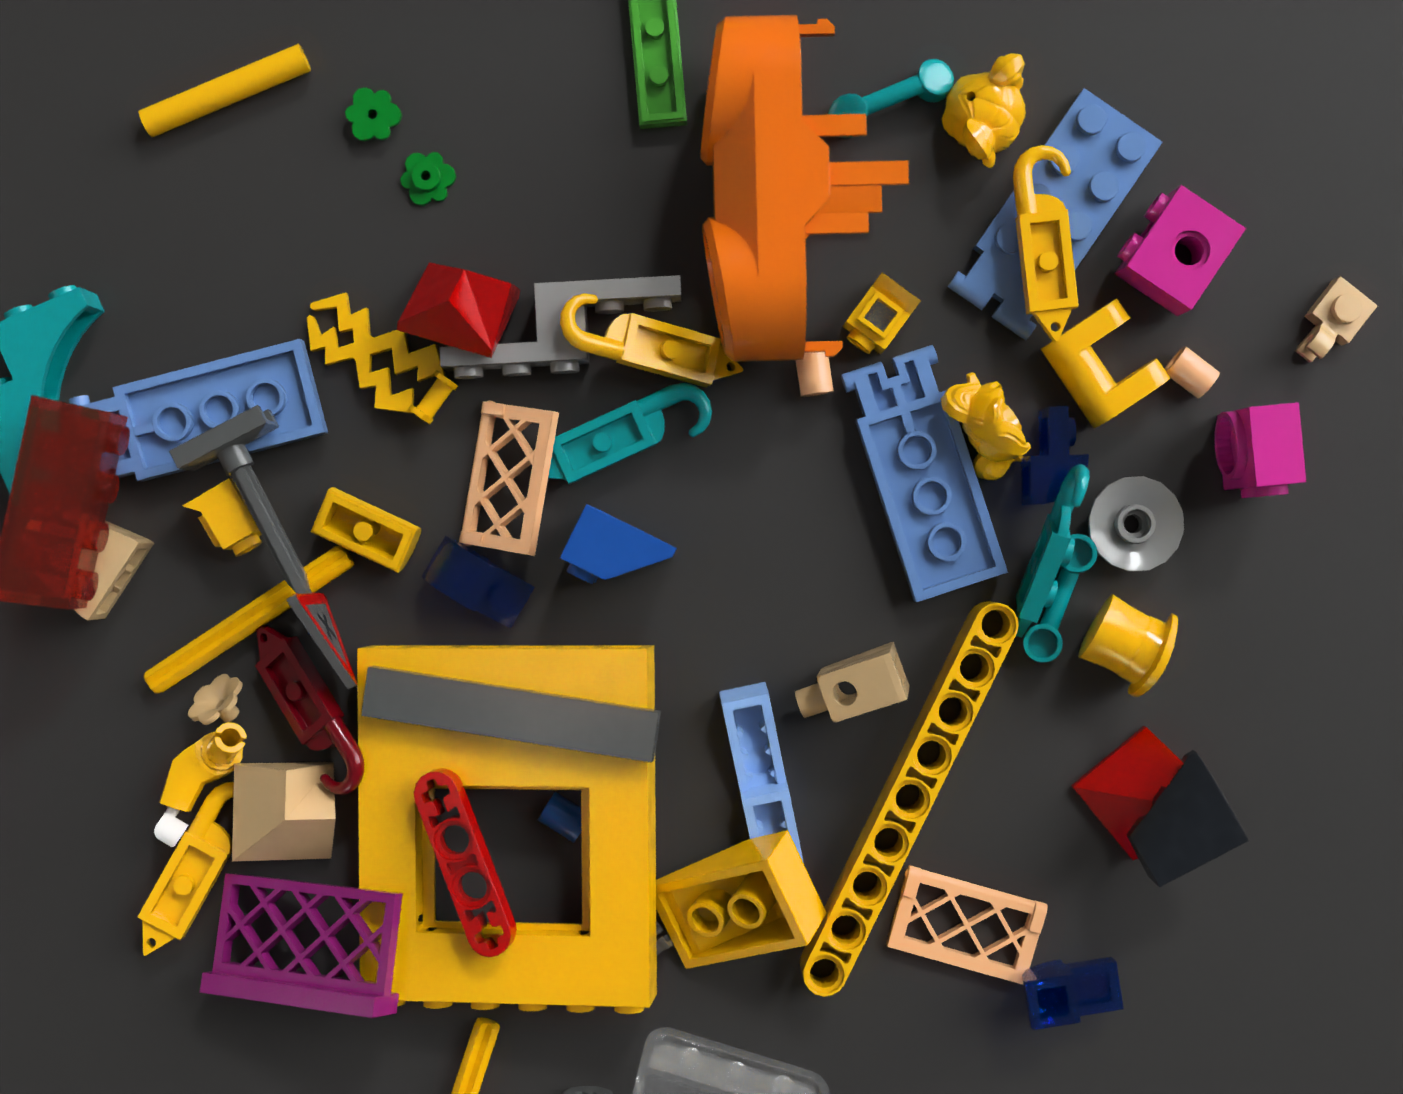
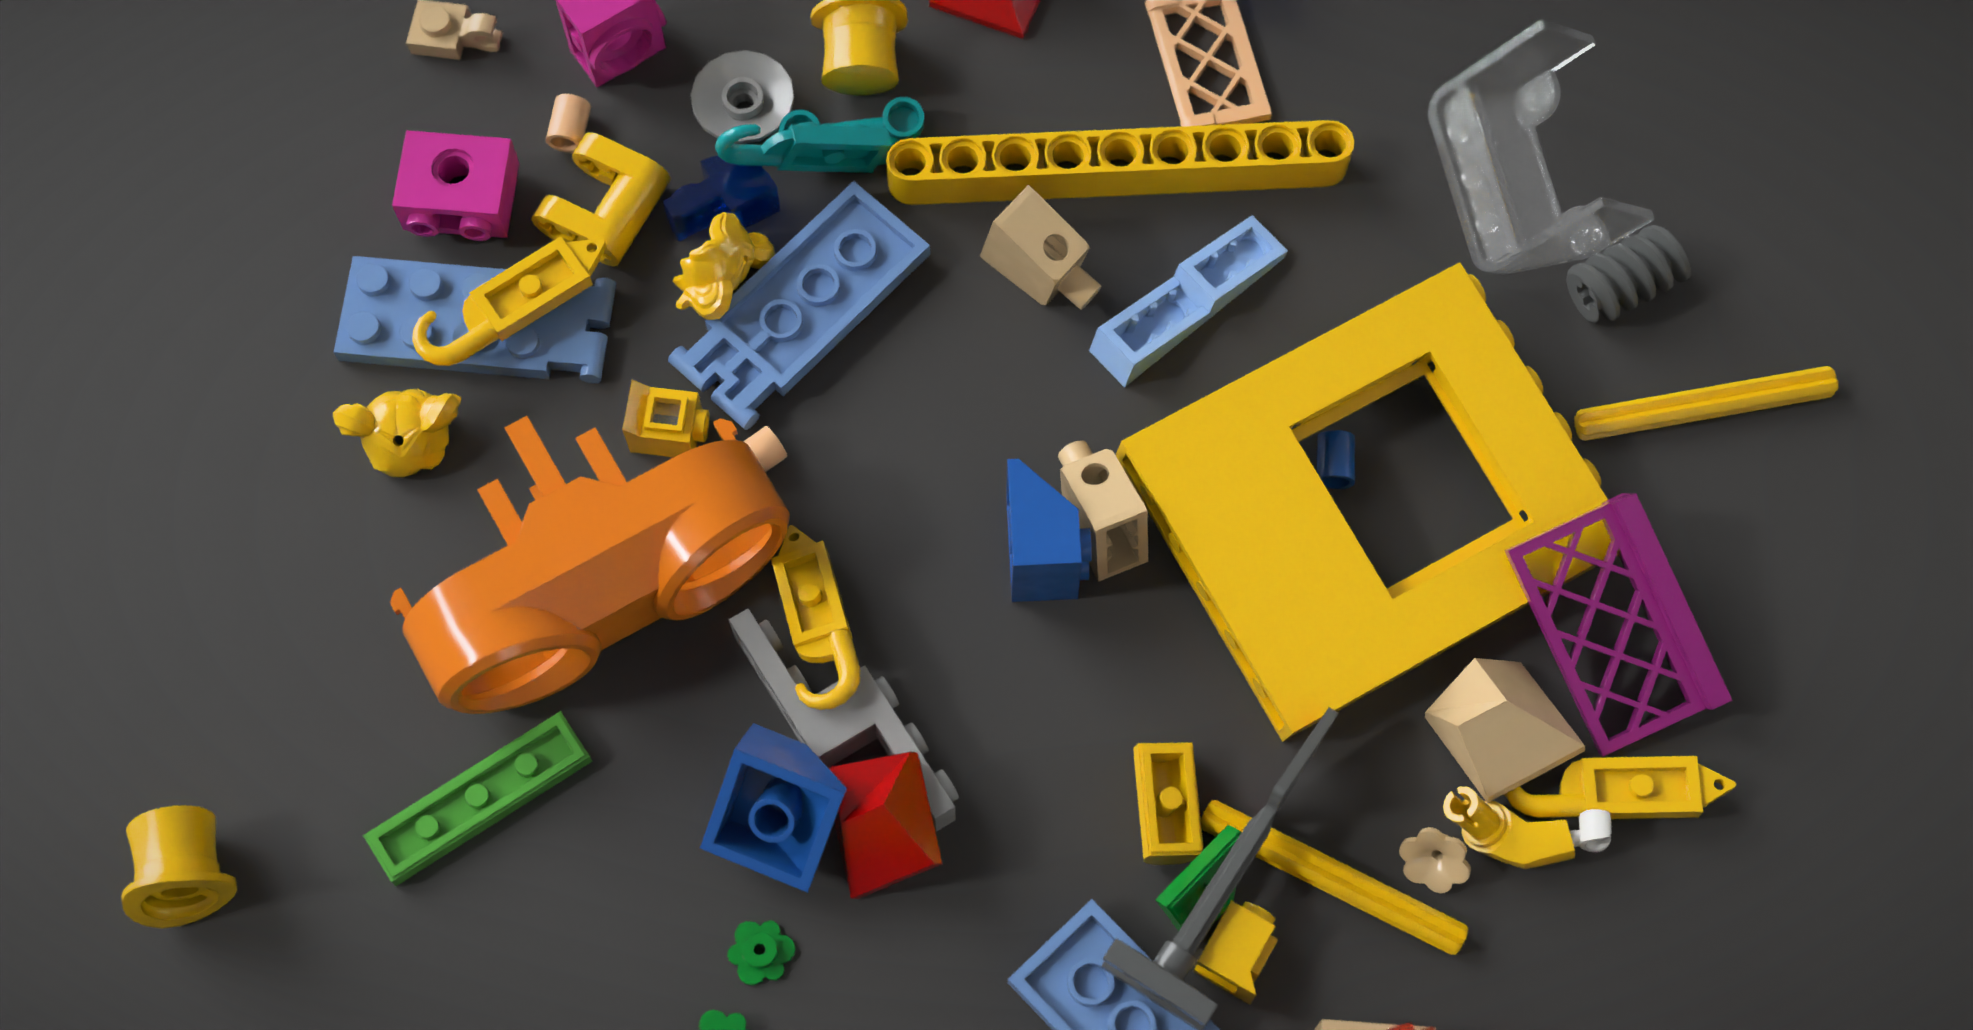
camera: 115 degrees left, 20 degrees down
(291, 512) = (1188, 887): none -> green tile
(308, 703) = (1379, 759): dark red plate -> none
(364, 346) = (975, 914): yellow piece -> none
(457, 864) = (1434, 503): red beam -> none
(477, 582) = (1155, 665): clear blue brick -> none
(509, 232) = (775, 808): none -> blue slope
(511, 713) = (1264, 538): dark grey tile -> none
(534, 502) = (994, 662): light nougat window -> none
(599, 611) = (1107, 507): none -> tan torso
(622, 433) = (926, 607): teal plate -> none
(740, 902) = (1311, 249): yellow slope -> none
(930, 83) = (399, 499): teal bar -> none

